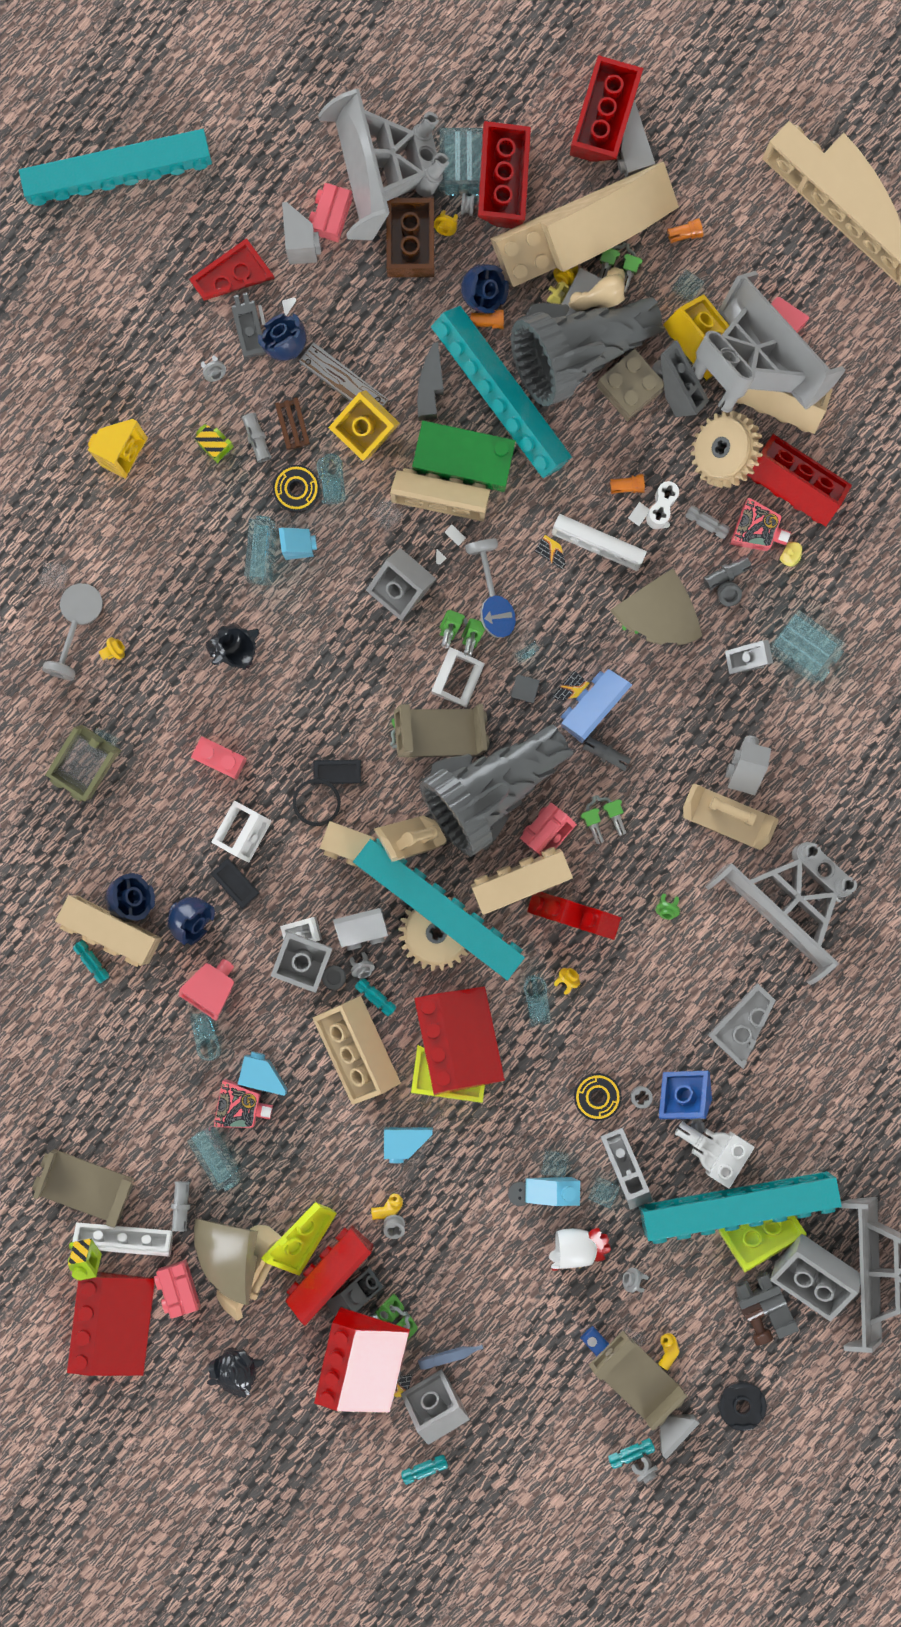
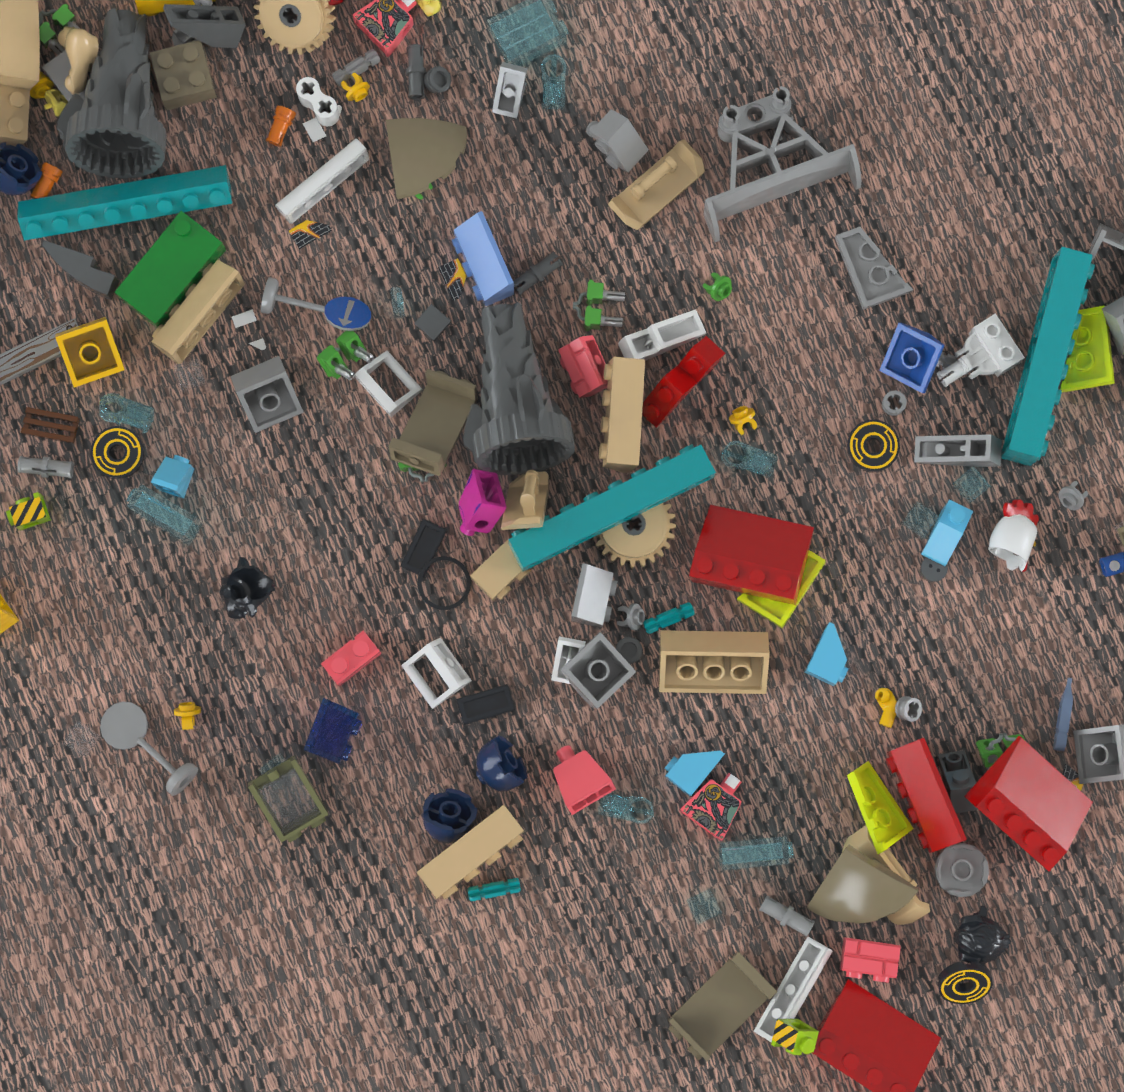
camera: 65 degrees left, 5 degrees down
(150, 773) = (333, 732): none -> clear blue slope
(157, 1135) = (703, 906): none -> clear light blue tile
(193, 1376) = (963, 993): none -> black tile
(284, 1322) = (953, 872): none -> light grey tile
(394, 801) = (481, 502): none -> dark pink torso
(603, 881) = (662, 336): none -> white slope
(689, 534) = (358, 90): none -> yellow plate
(771, 692) = (555, 86): none -> clear light blue piece

